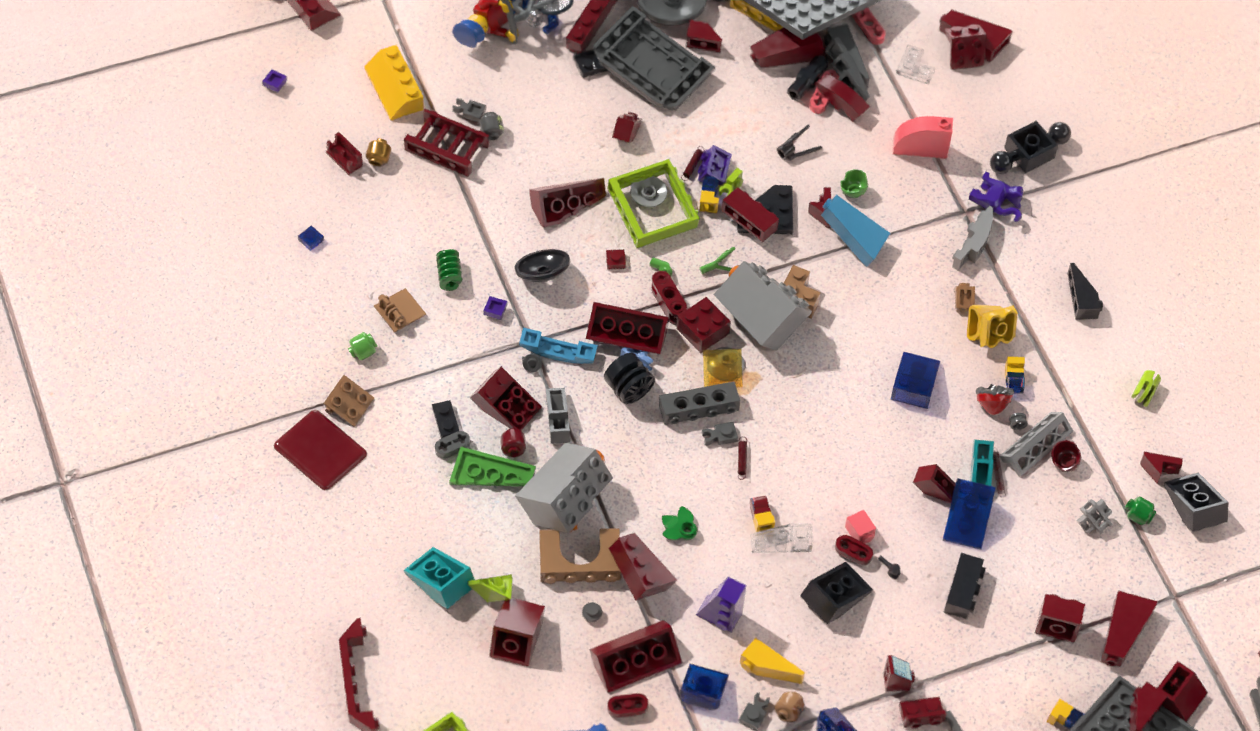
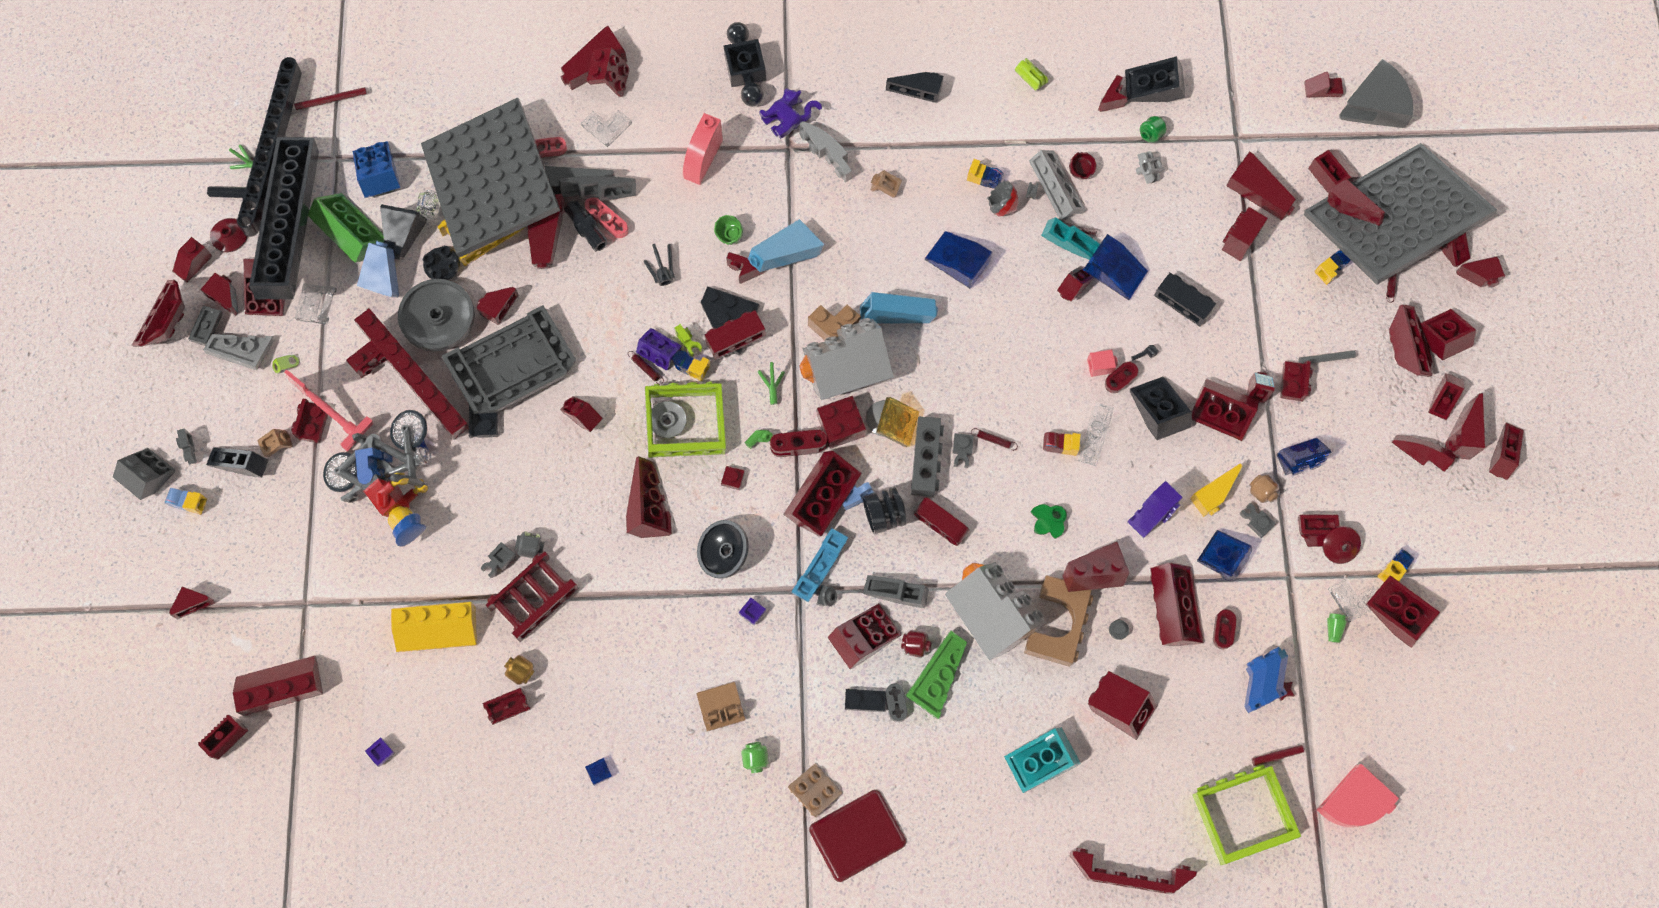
camera: 70 degrees left, 15 degrees up
(449, 269) = (692, 642): green piece -> none
(493, 588) = (1072, 709): lime slope -> none
(640, 433) = (941, 521): none -> dark red beam
(836, 338) = (898, 309): none -> dark azure slope
(842, 96) = (624, 202): dark red slope -> none
(860, 649) = (1224, 409): none -> dark red slope
(991, 324) = (929, 171): yellow piece -> none

